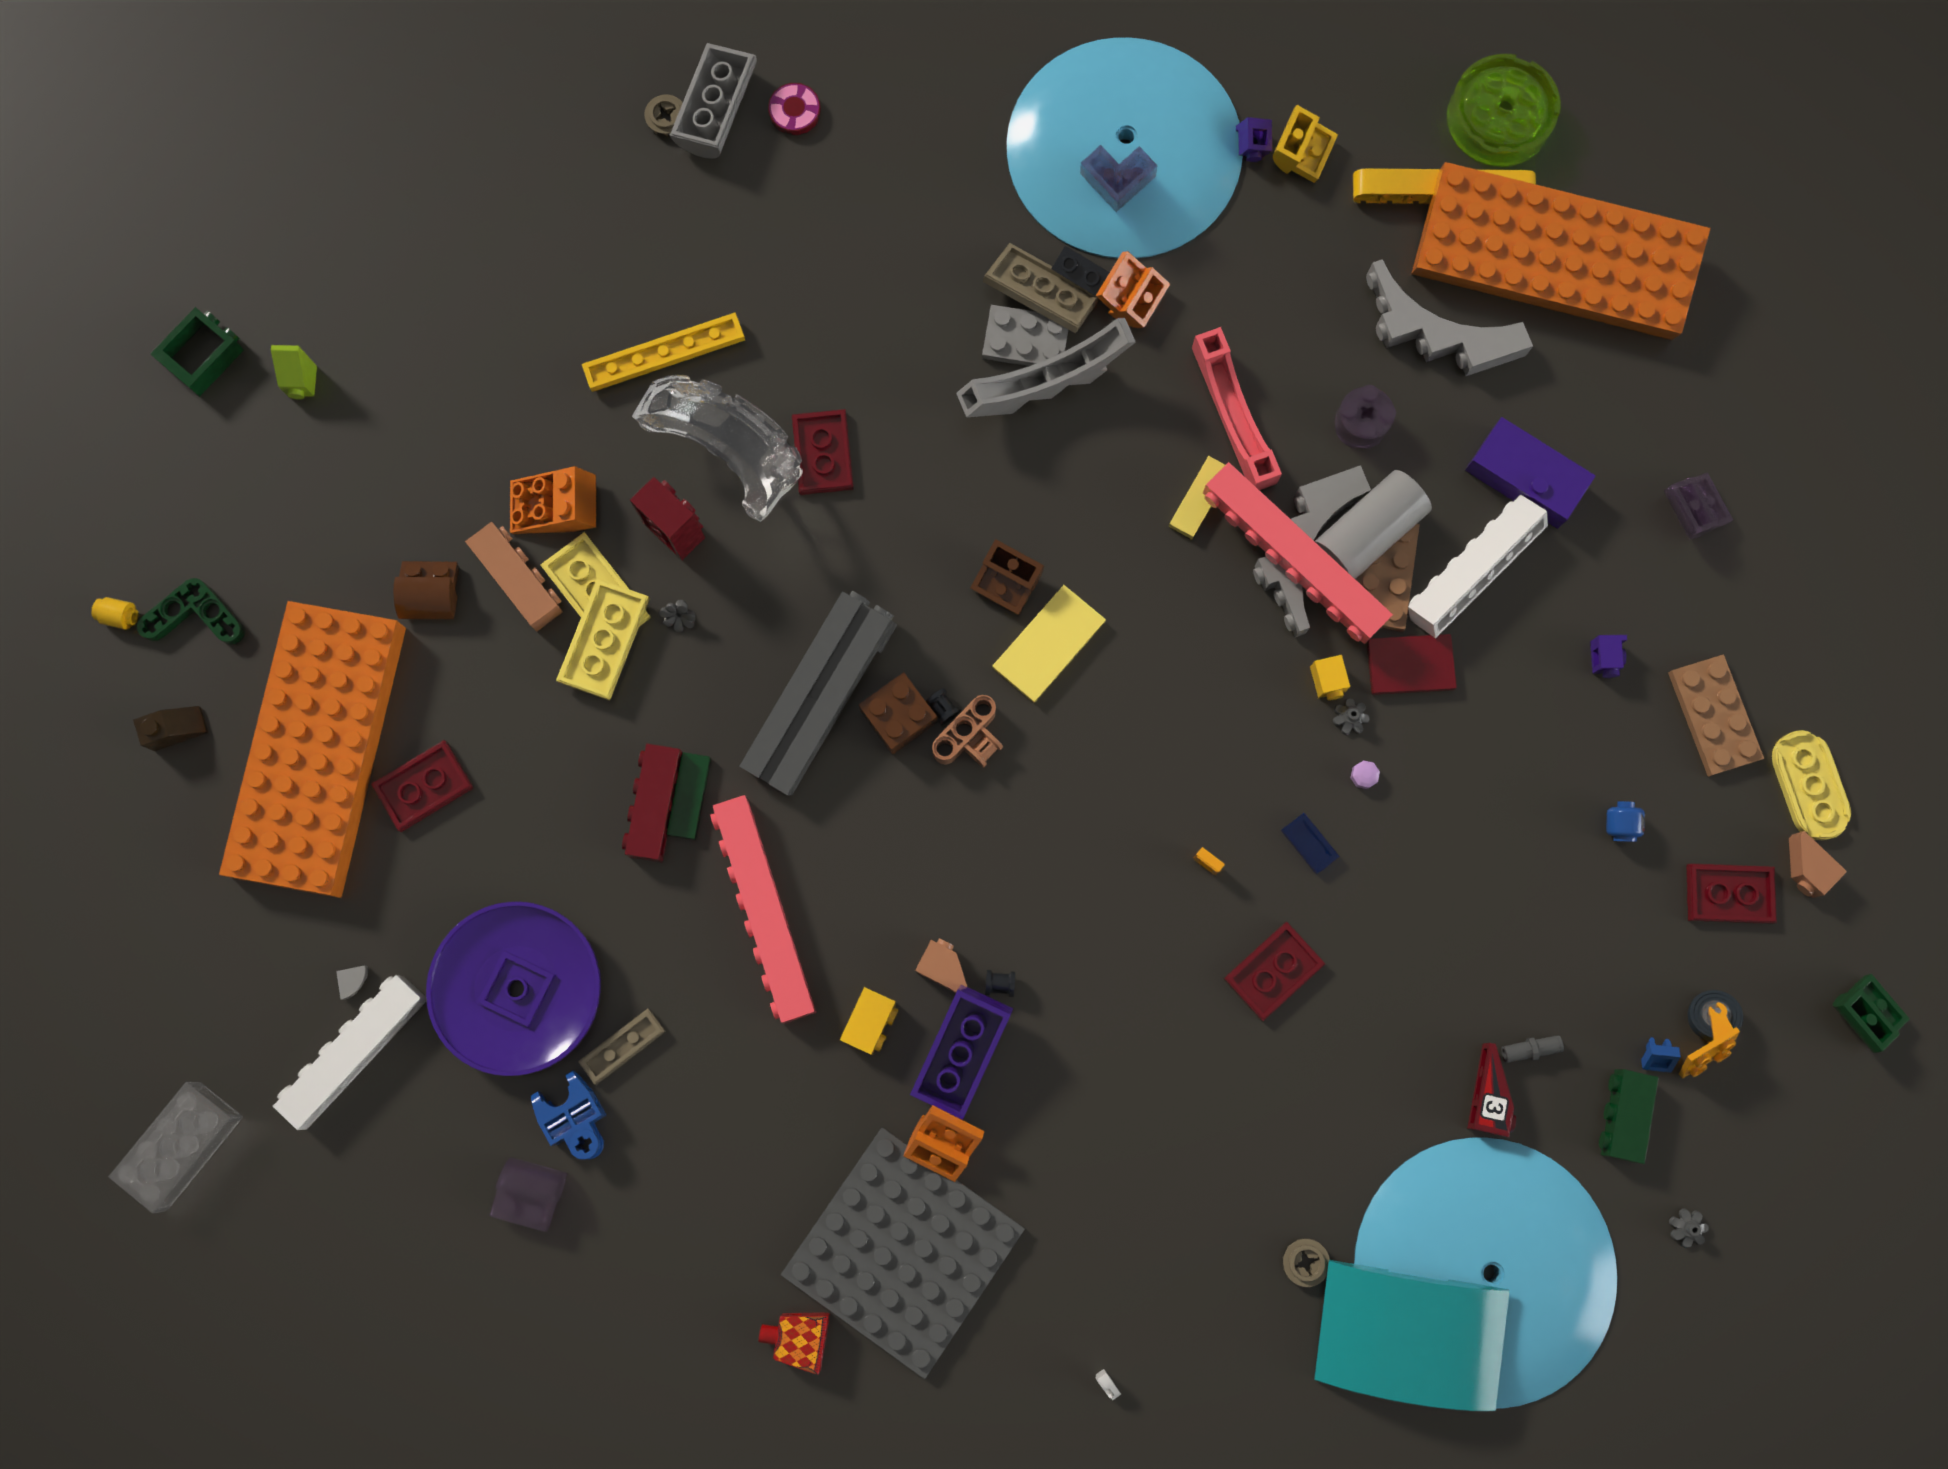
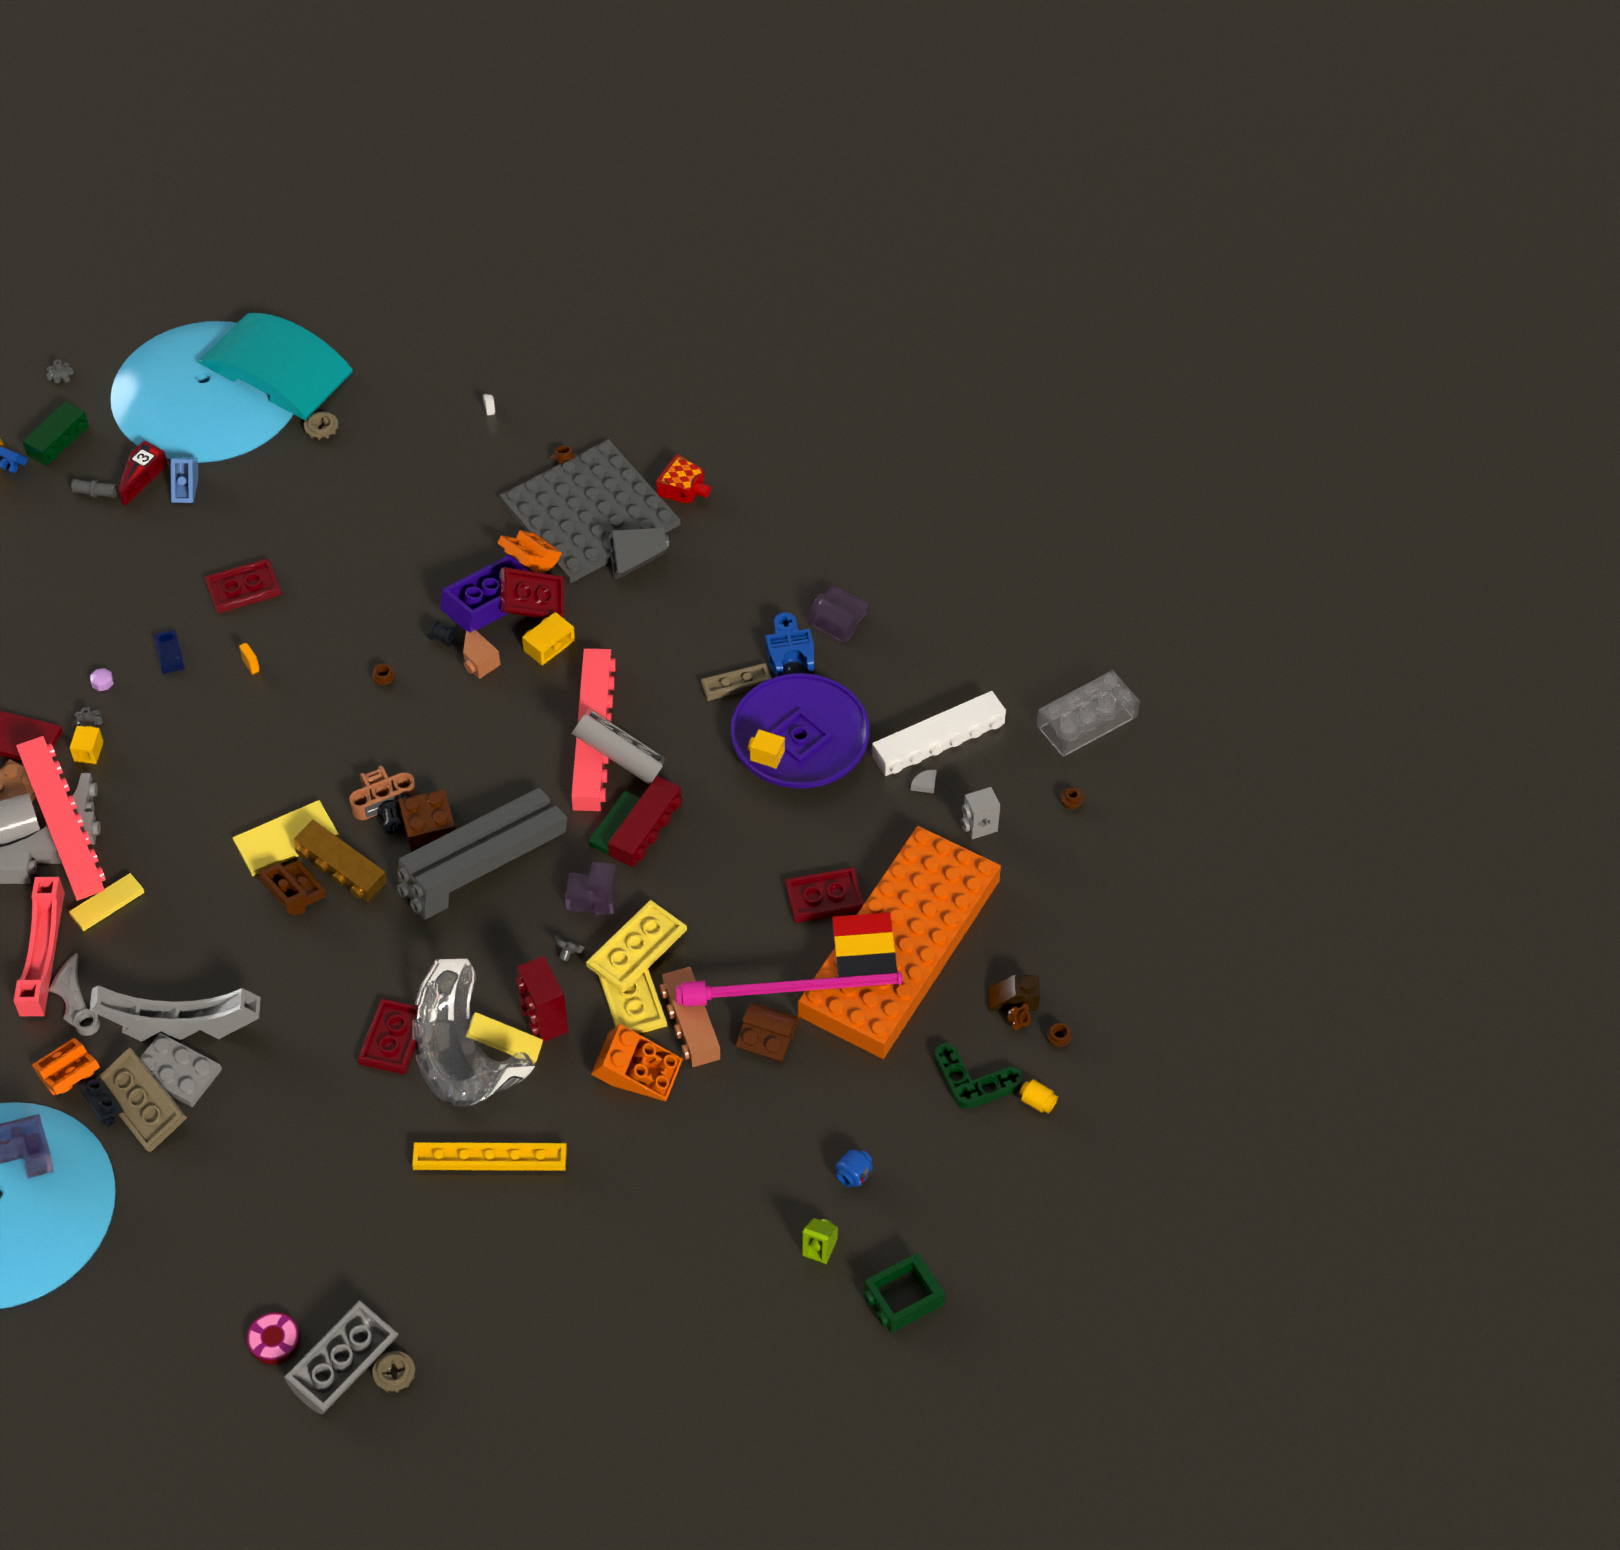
camera: 160 degrees left, 25 degrees down
(105, 695) = (1059, 1029): none -> reddish brown plate
(159, 700) = (1019, 1016): none -> reddish brown plate
(178, 1022) = (1072, 803): none -> reddish brown plate
(263, 942) = (980, 813): none -> light grey brick
(285, 462) = (854, 1168): none -> blue head
(334, 684) = (862, 954): none -> flag
(536, 933) = (766, 748): none -> yellow brick
(676, 688) = (593, 891): none -> clear purple brick
(702, 475) = (503, 1037): none -> light yellow tile
(712, 877) = (618, 746): none -> light grey brick
(812, 1196) = (635, 548): none -> dark grey slope
(907, 1066) = (531, 593): none -> dark red tile
(970, 624) = (340, 861): none -> pearl gold brick
(971, 1336) = (563, 454): none -> reddish brown plate
(1046, 891) = (379, 671): none -> reddish brown plate
(1187, 388) = (67, 986): none -> light grey piece
(1430, 1104) = (184, 479): none -> medium blue slope

